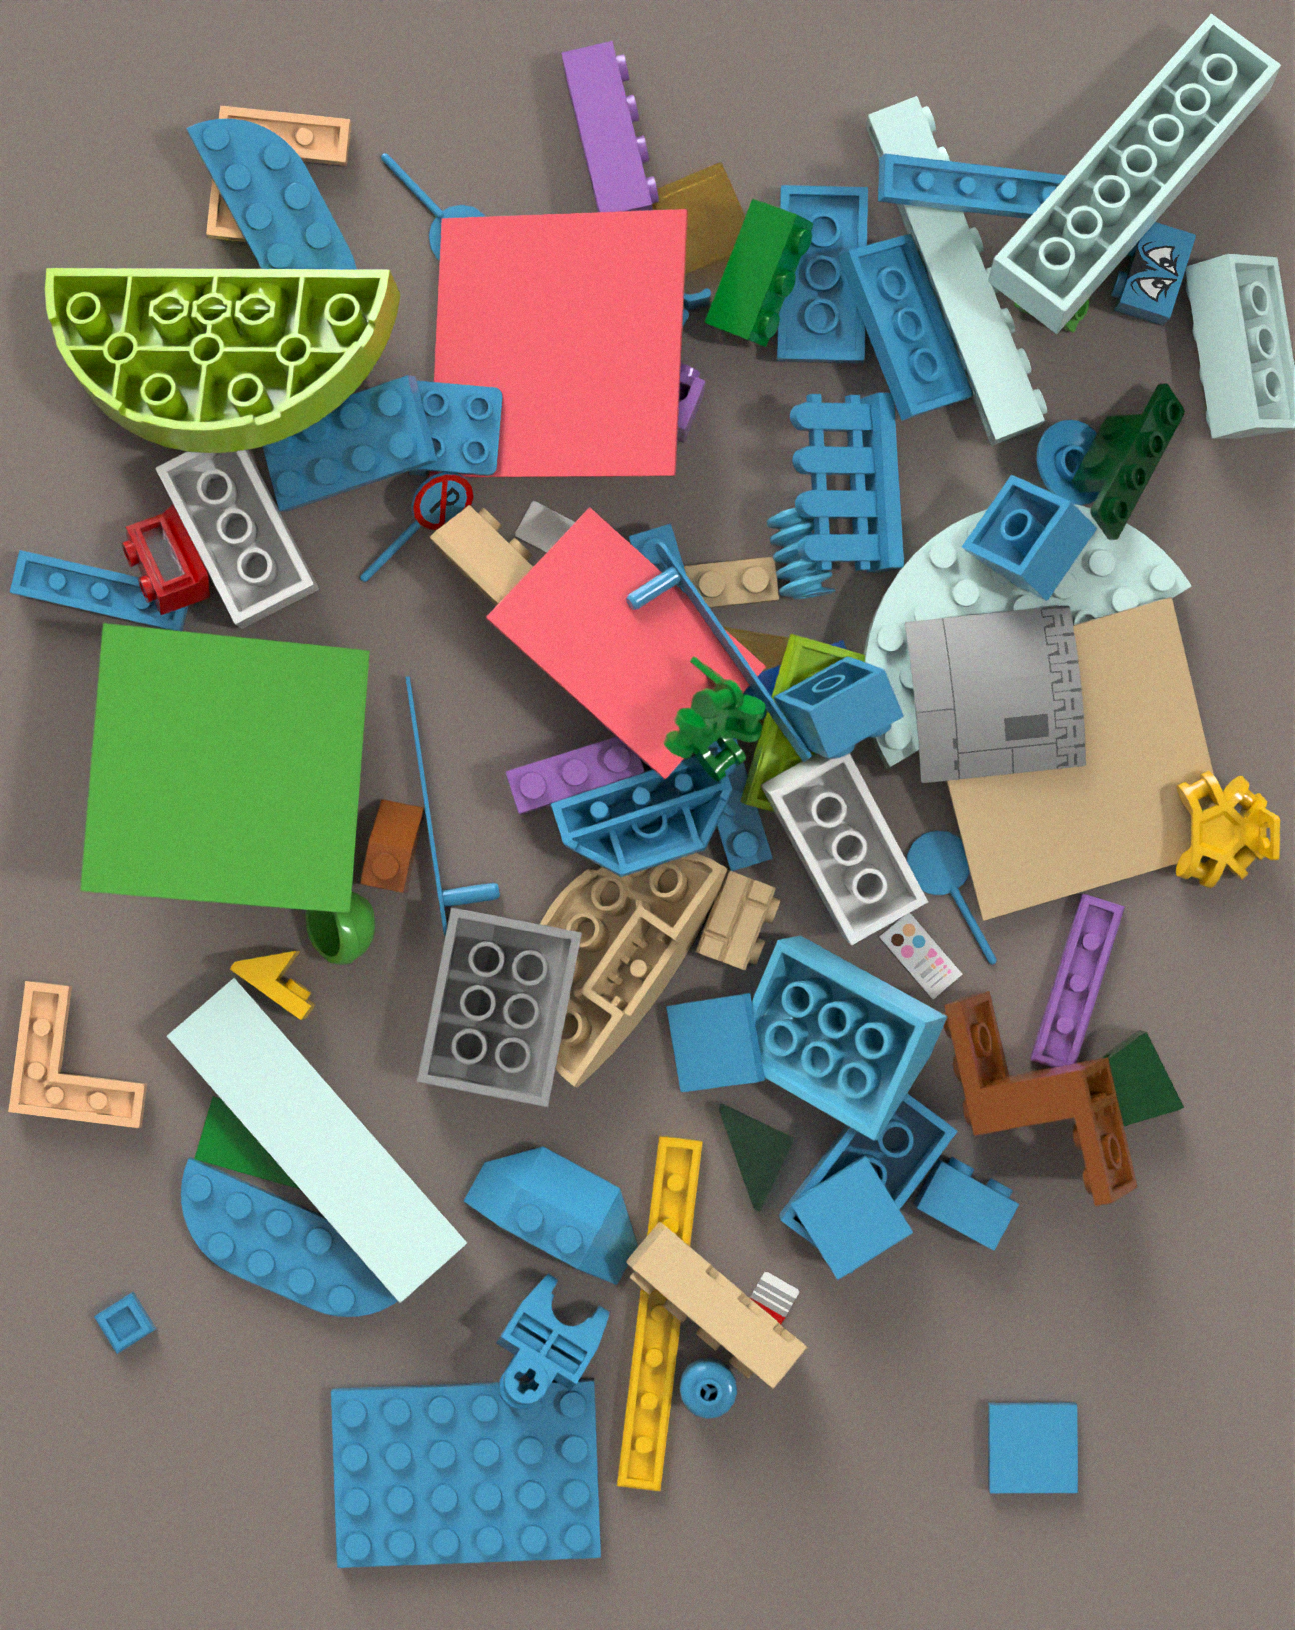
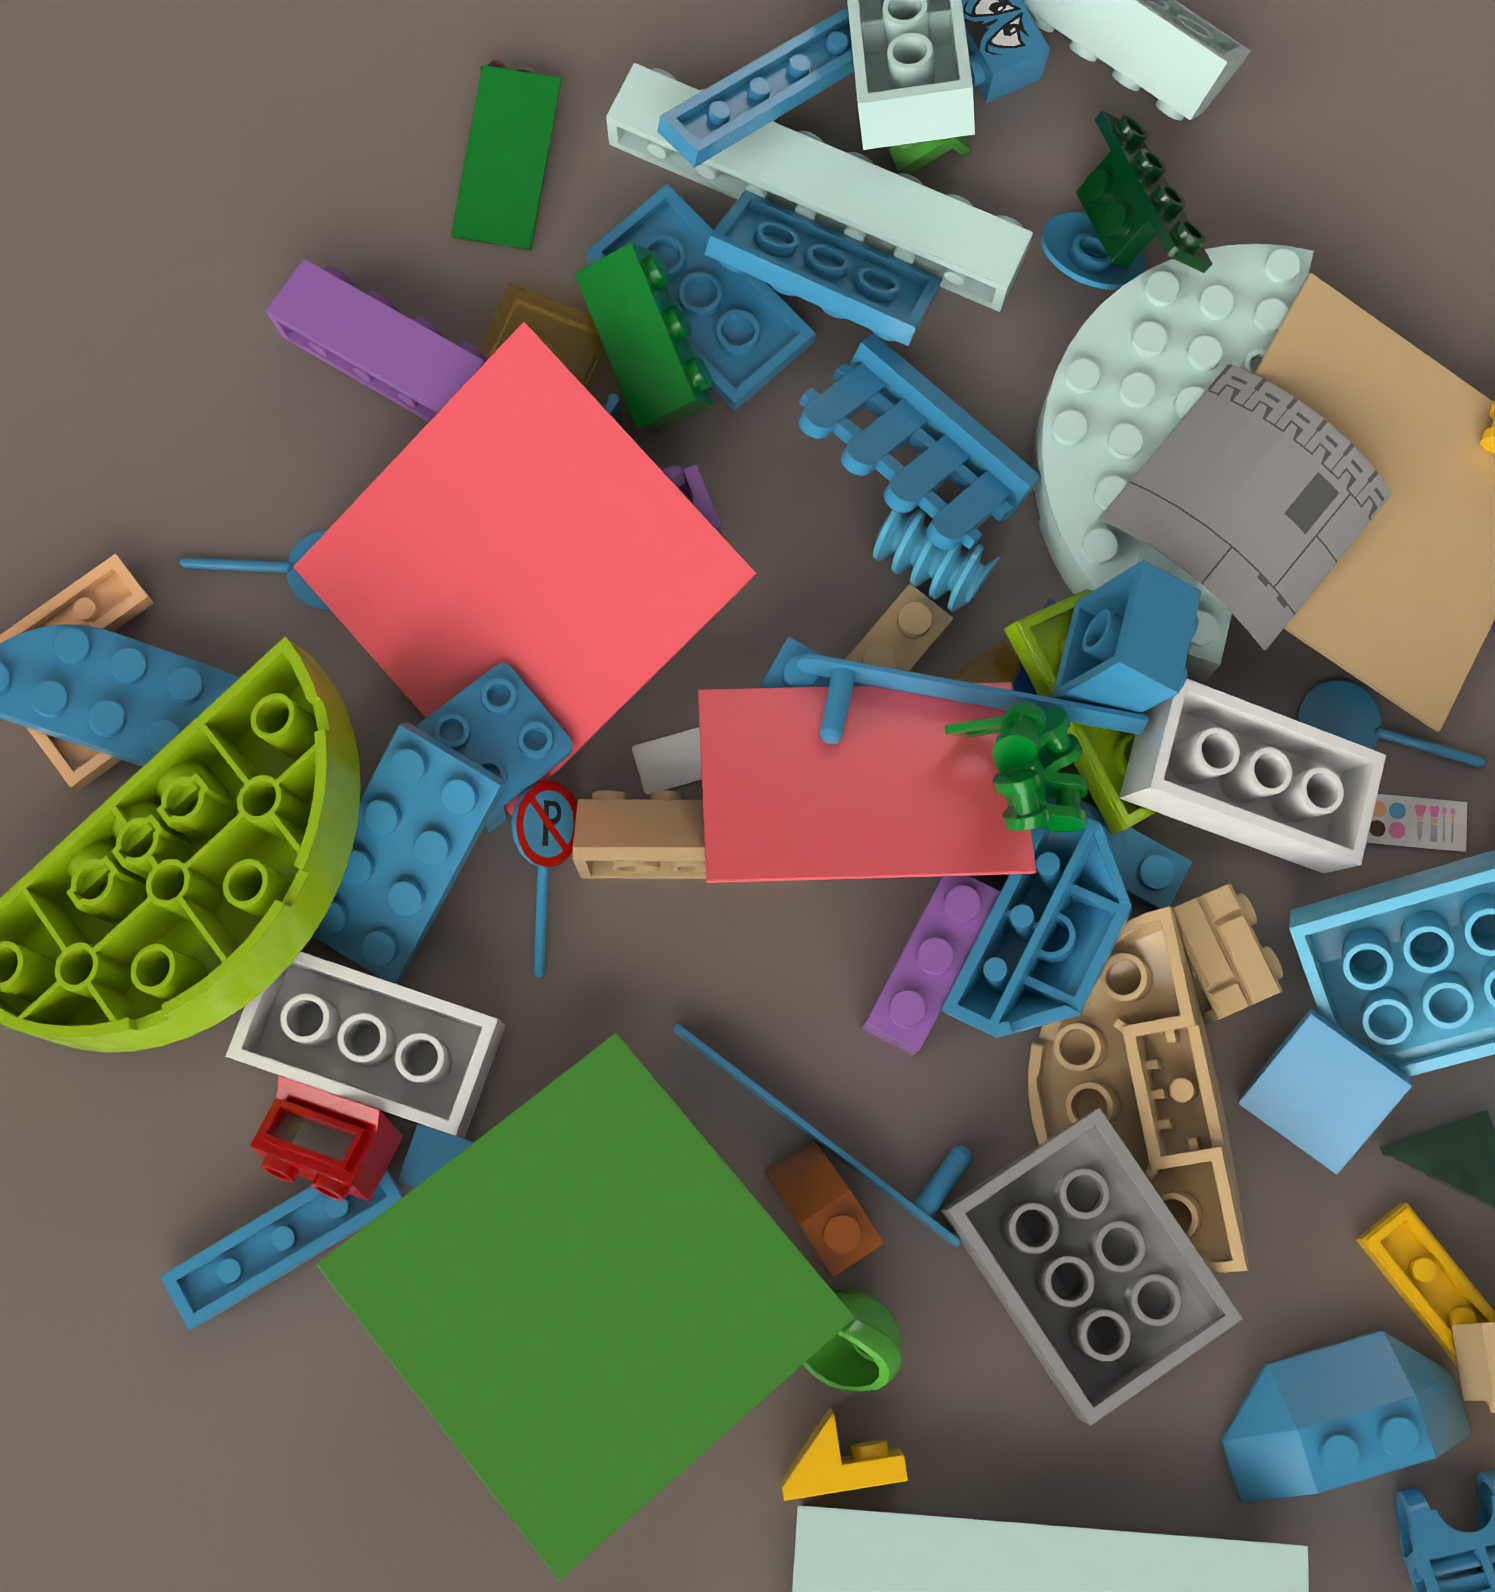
camera: 50 degrees left, 10 degrees down
(215, 620) = (428, 1153): none -> dark azure tile
(796, 78) = (506, 156): none -> green piece
(1030, 537) = (1136, 328): dark azure slope -> none

